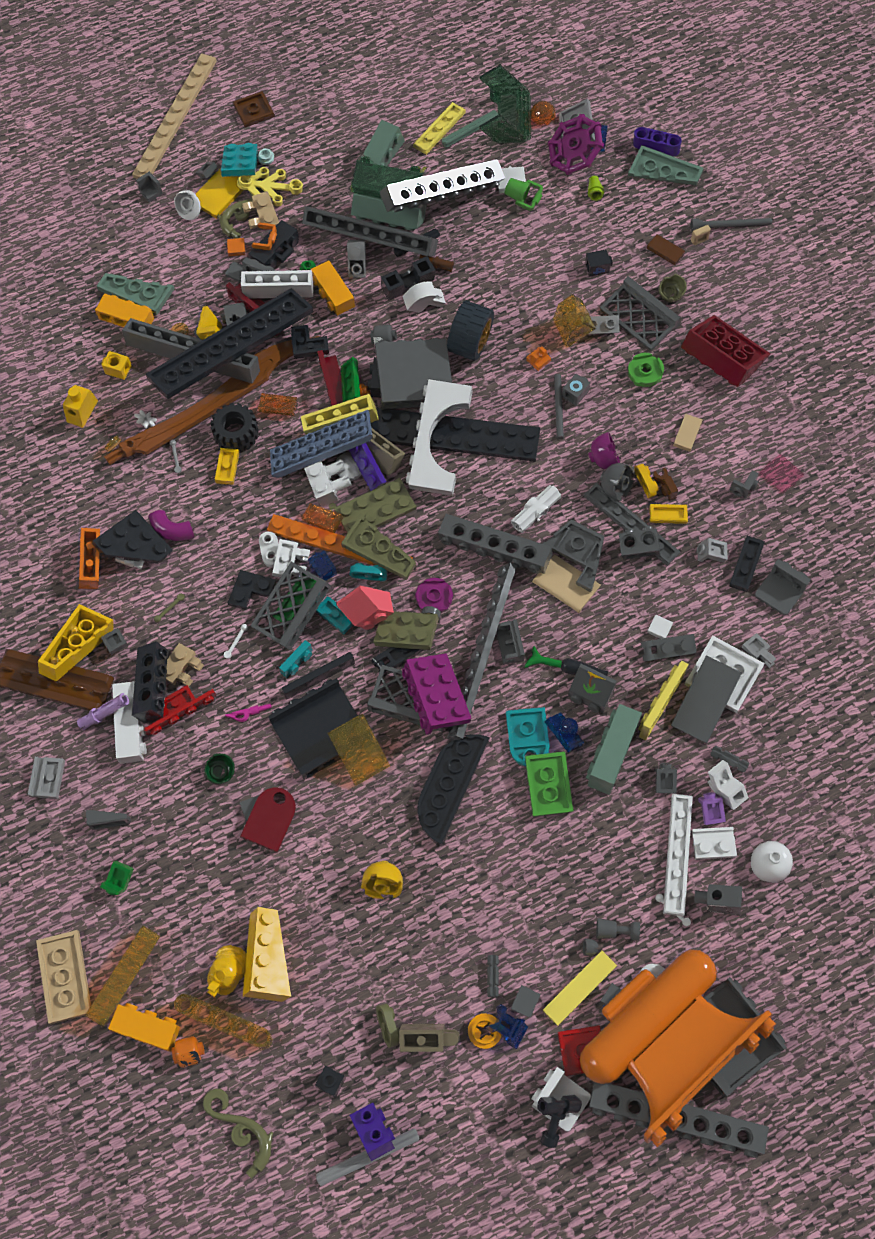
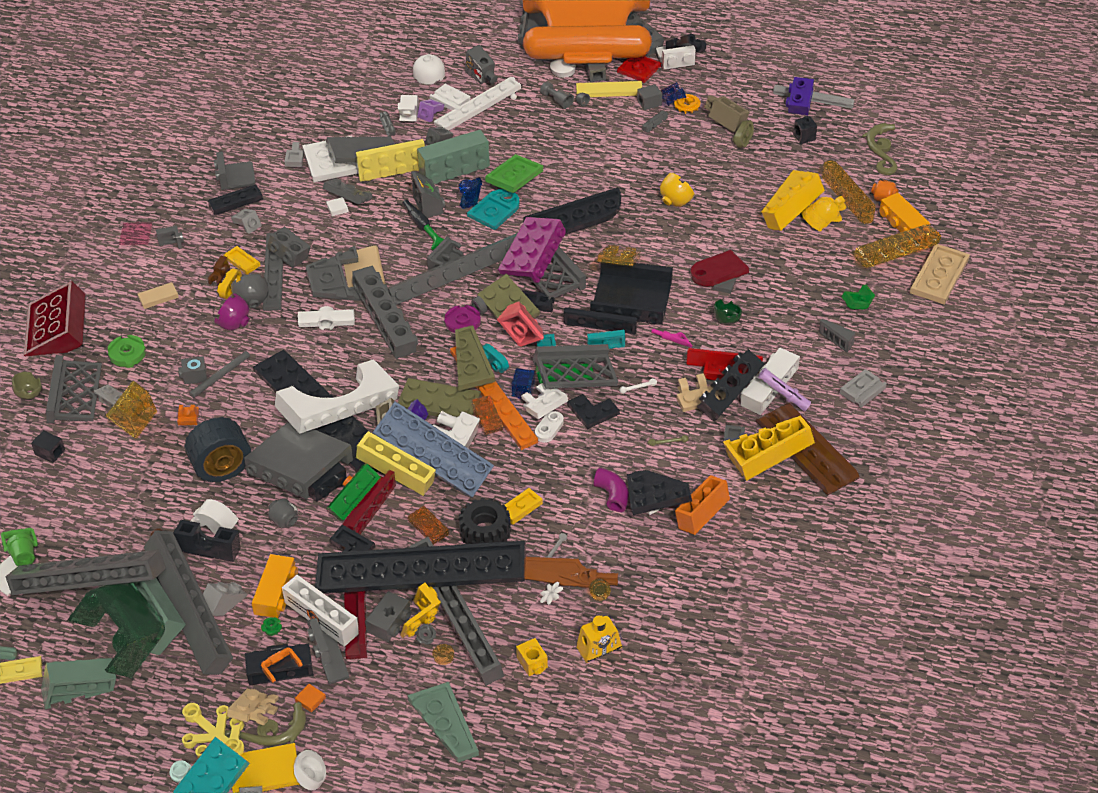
camera: 140 degrees left, 20 degrees down
(120, 311) = (478, 702): light orange brick -> none

